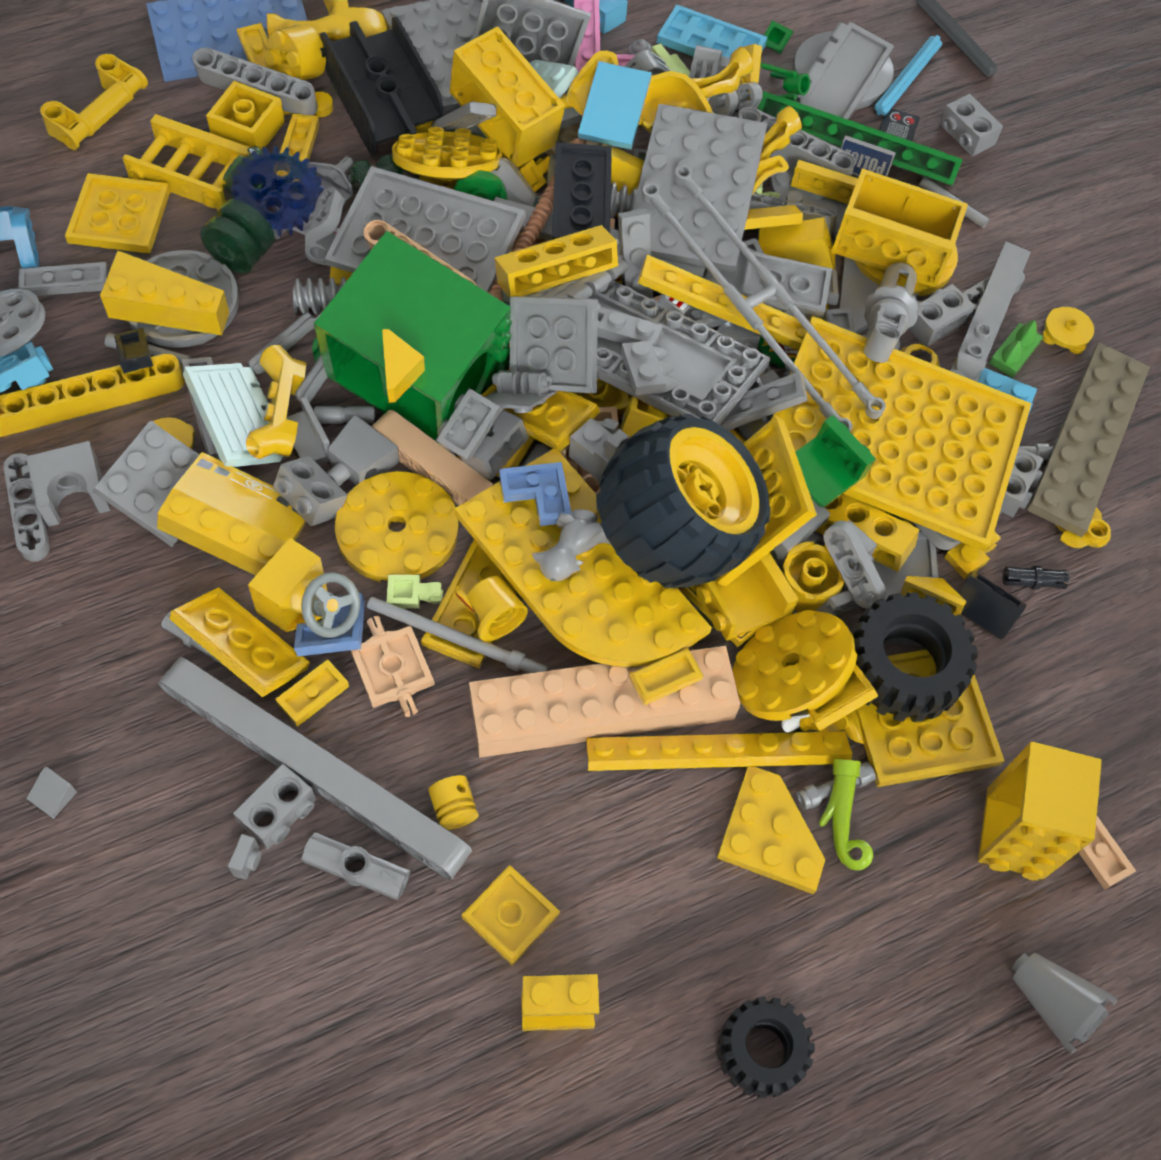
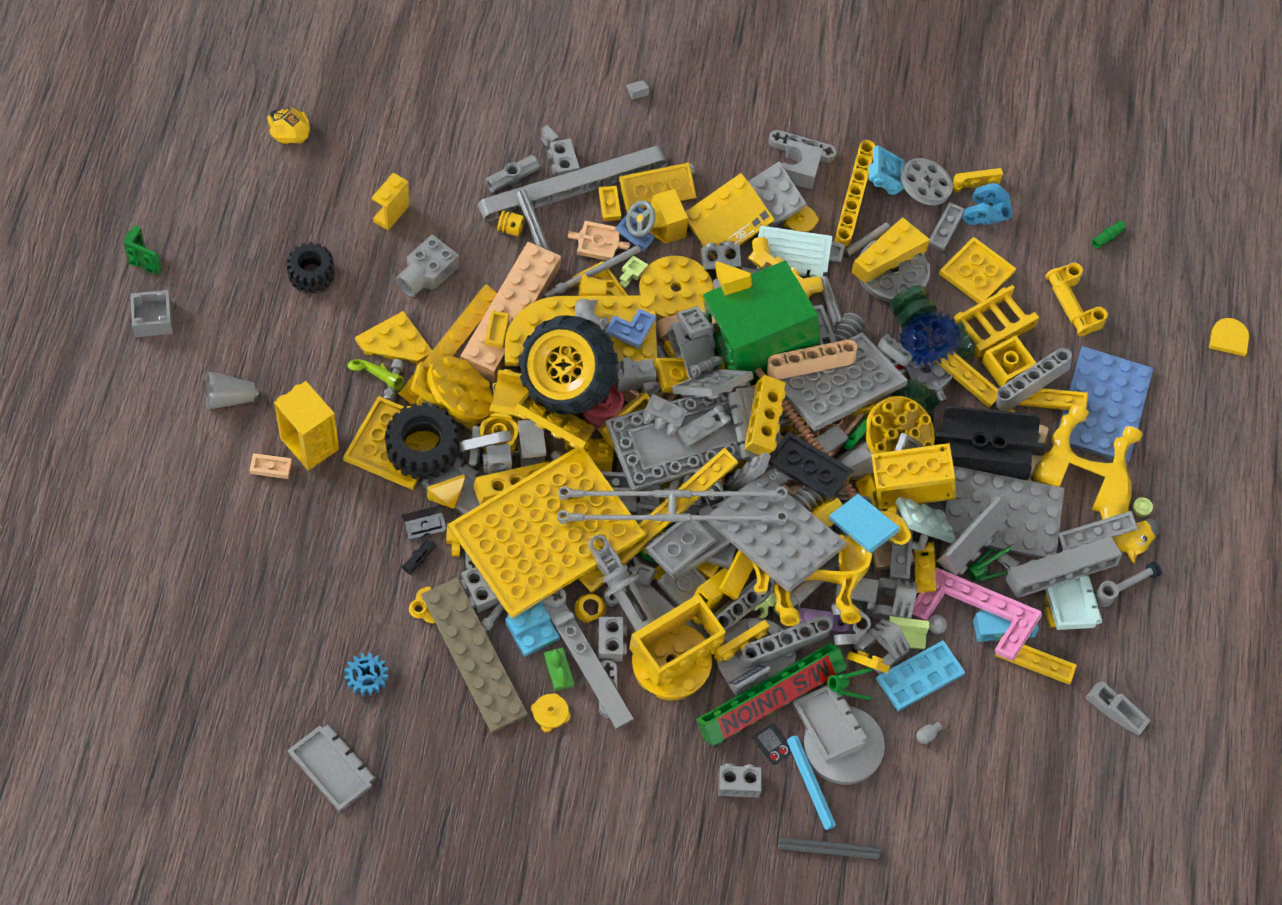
camera: 125 degrees right, 0 degrees up
(133, 350) = (863, 223): black tile -> none
(296, 52) = (1044, 405): yellow brick -> none
(431, 768) = (532, 219): none -> light grey axle
(510, 914) = (445, 219): yellow tile -> none
(622, 869) = (427, 266): none -> light grey brick
(766, 10) = (928, 733): none -> light grey cylinder
(767, 400) = (607, 470): light grey tile -> none
(777, 36) = (900, 723): green slope -> none
(833, 462) = (546, 464): green bracket -> none
(970, 213) = (677, 726): light grey bar -> none

